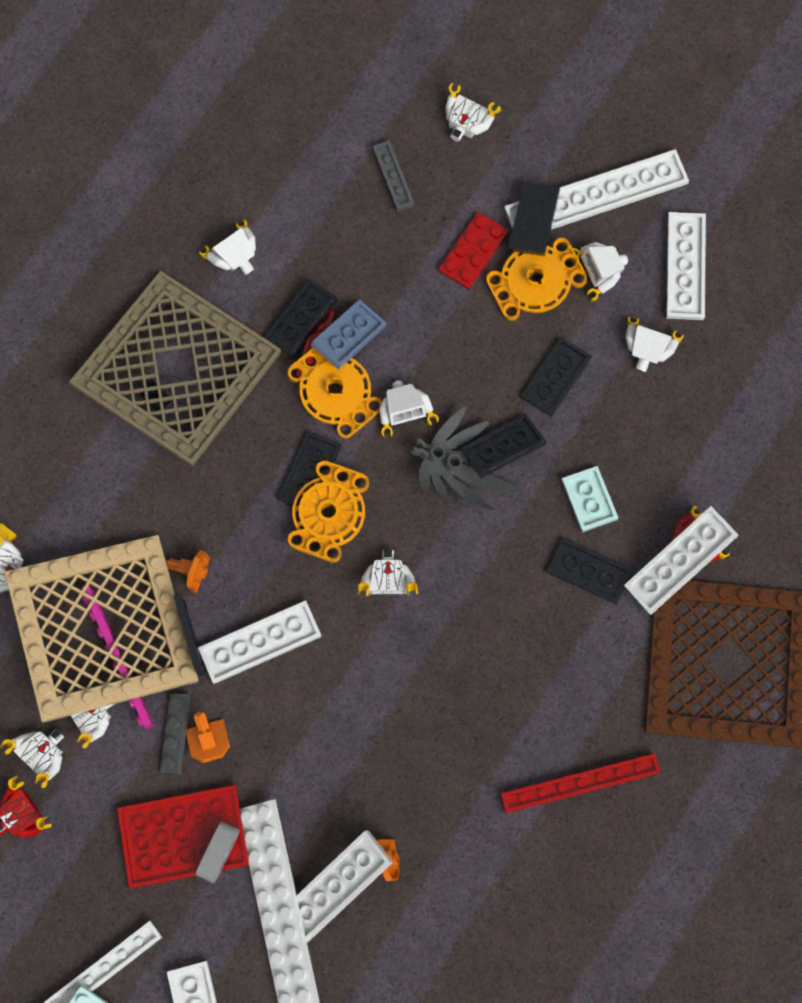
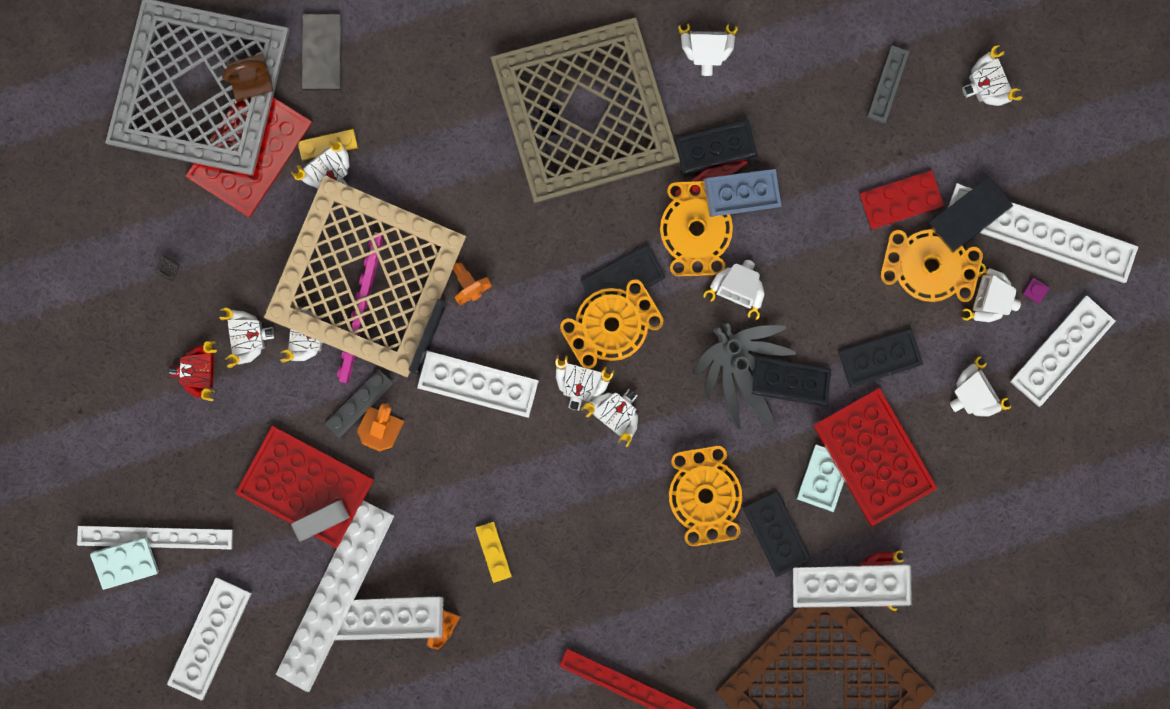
camera: 40 degrees right, 10 degrees up
(340, 575) = (580, 382): none -> white torso
(379, 765) = (493, 552): none -> yellow plate
(506, 567) = (714, 513): none -> light orange piece
(614, 452) = (875, 457): none -> red plate
(628, 238) = (1036, 291): none -> magenta plate

